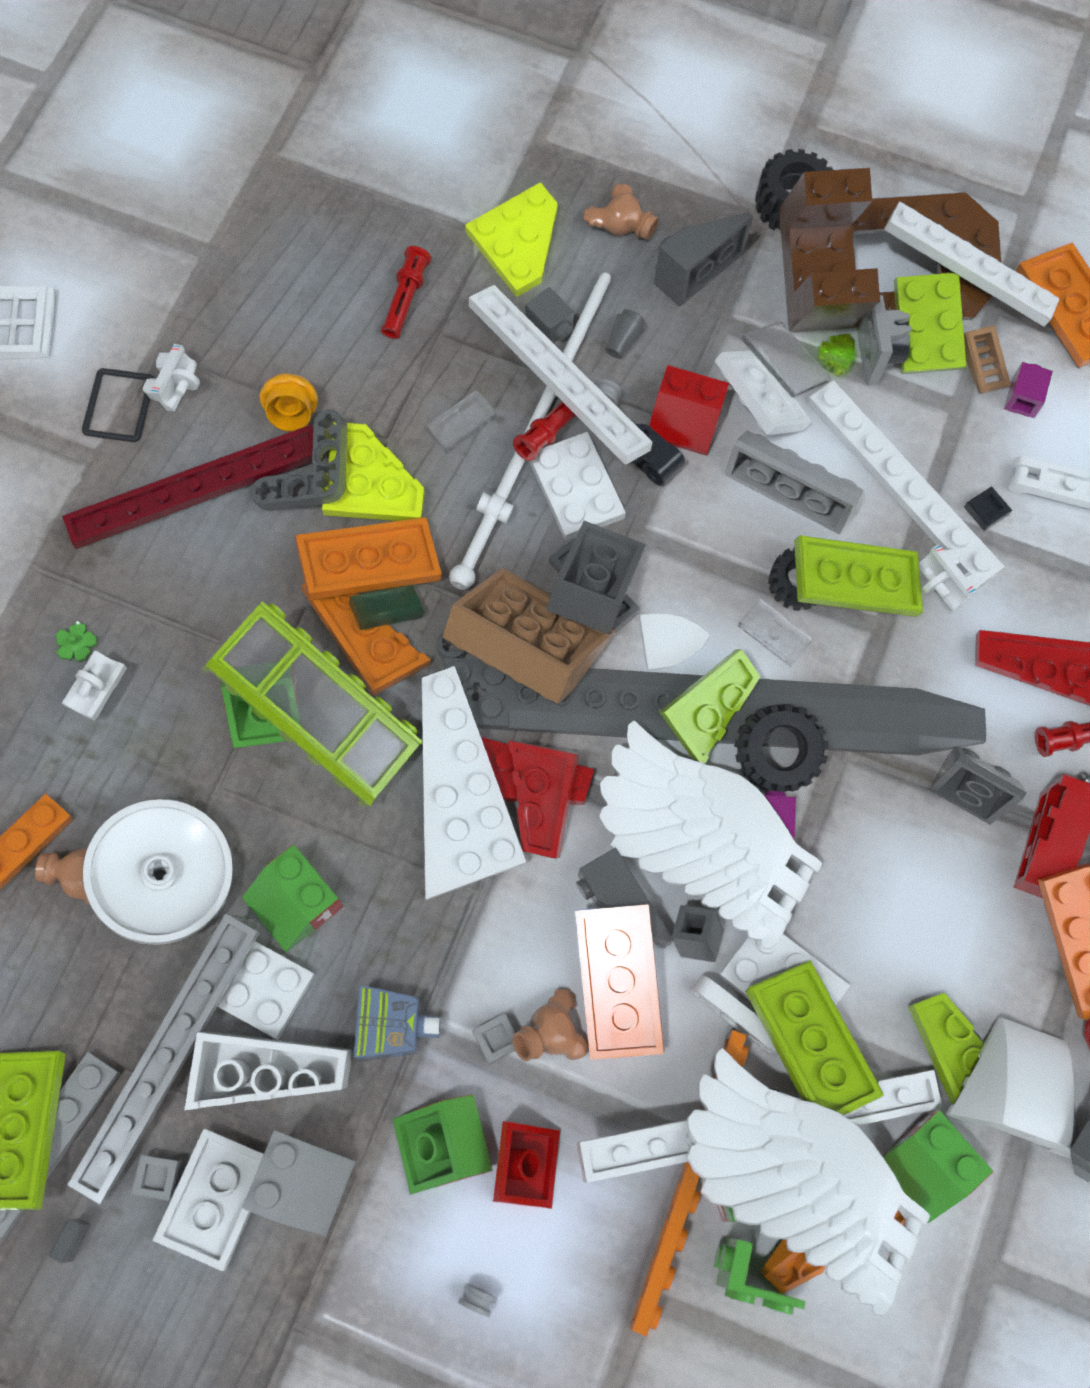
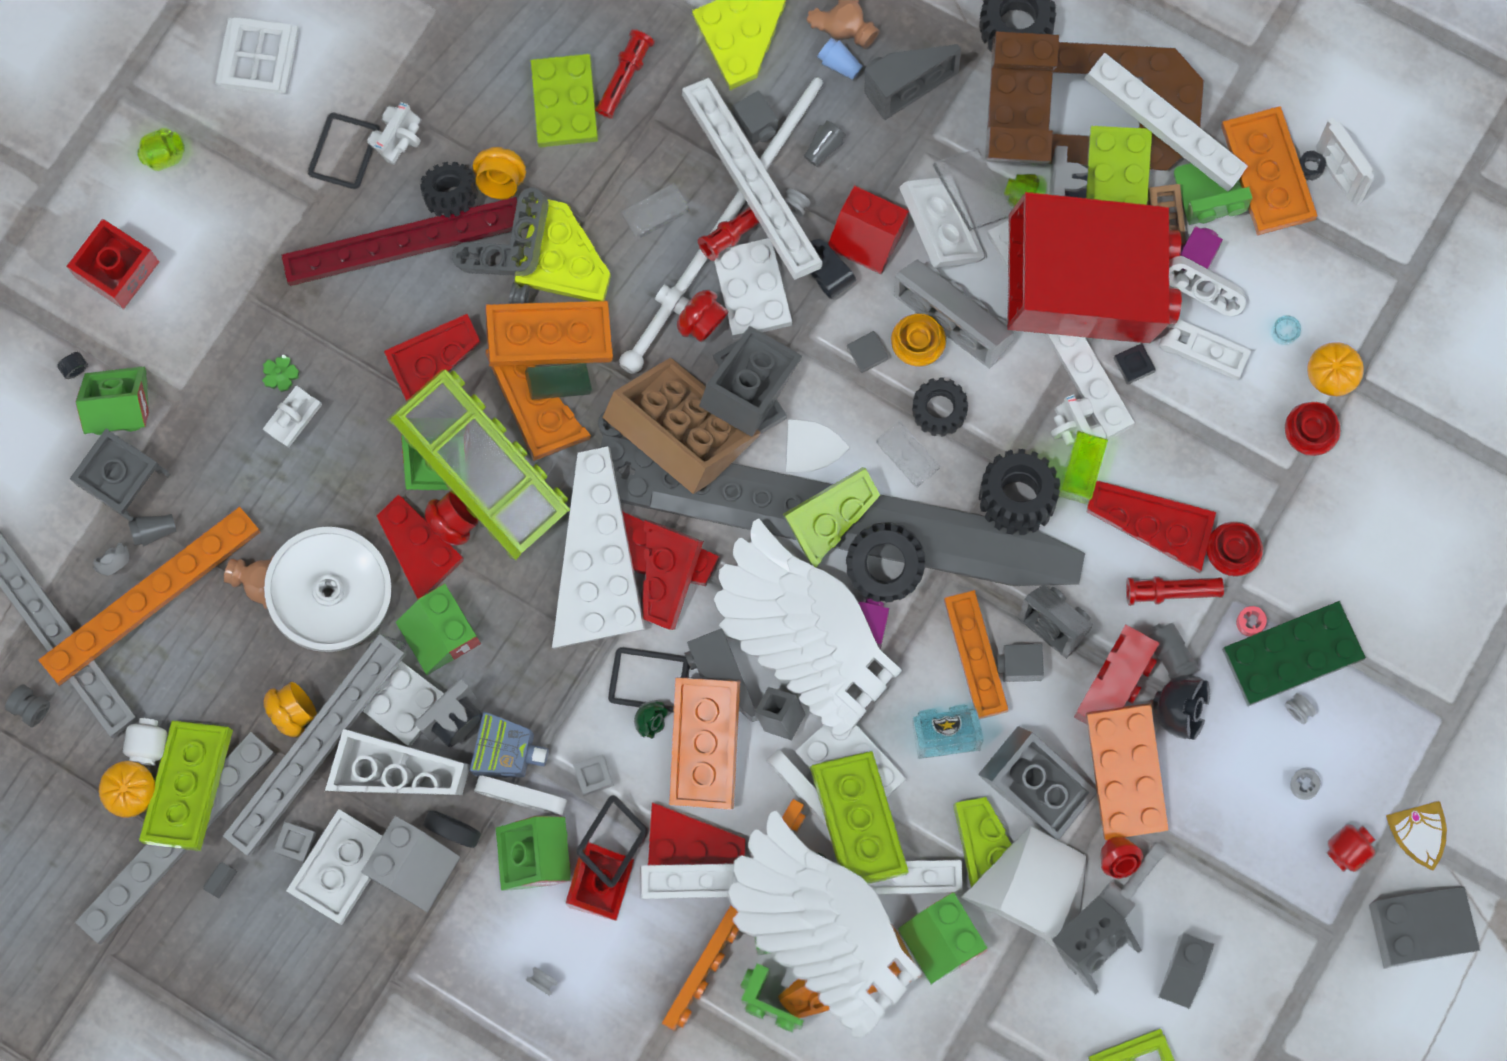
camera: 20 degrees right, 5 degrees up
(130, 1018) = (289, 709): none -> light orange piece
(233, 599) = (427, 354): none -> red wing
(237, 425) = (445, 177): none -> black tyre
(256, 809) = (419, 551): none -> red wing
(289, 771) = (450, 519): none -> red piece
(322, 996) = (451, 716): none -> light grey piece
(329, 522) = (519, 294): none -> dark grey bush
(342, 1131) = (452, 829): none -> black tyre
(346, 326) = (564, 100): none -> lime plate
(416, 1077) = (520, 795): none -> white beam
(530, 517) = (701, 315): none -> red piece
(534, 889) = (619, 651): none -> black piece
(540, 1166) = (611, 883): none -> black piece
(550, 962) = (650, 718): none -> dark green plate
(551, 1031) = (640, 775): nougat animal -> none
(622, 1101) = (687, 841): none -> red wing
(624, 252) = (840, 59): none -> light blue cone
(710, 533) = (867, 352): none -> dark grey tile
(763, 512) = (918, 340): none -> light orange piece
(858, 576) = (992, 413): lime tile -> none
(887, 925) = (947, 732): none -> clear light blue slope
(896, 835) = (976, 654): none -> orange plate
(915, 632) = (1026, 470): none -> black tyre
(930, 413) = (1091, 268): none -> red brick
(948, 836) = (1021, 663): none -> dark grey brick
(967, 619) = (1082, 467): none -> clear neon green slope
(995, 965) = (1038, 782): none -> dark grey slope
(1023, 337) = (1205, 199): none -> bright green bracket
(1040, 407) = (1211, 298): none -> white beam

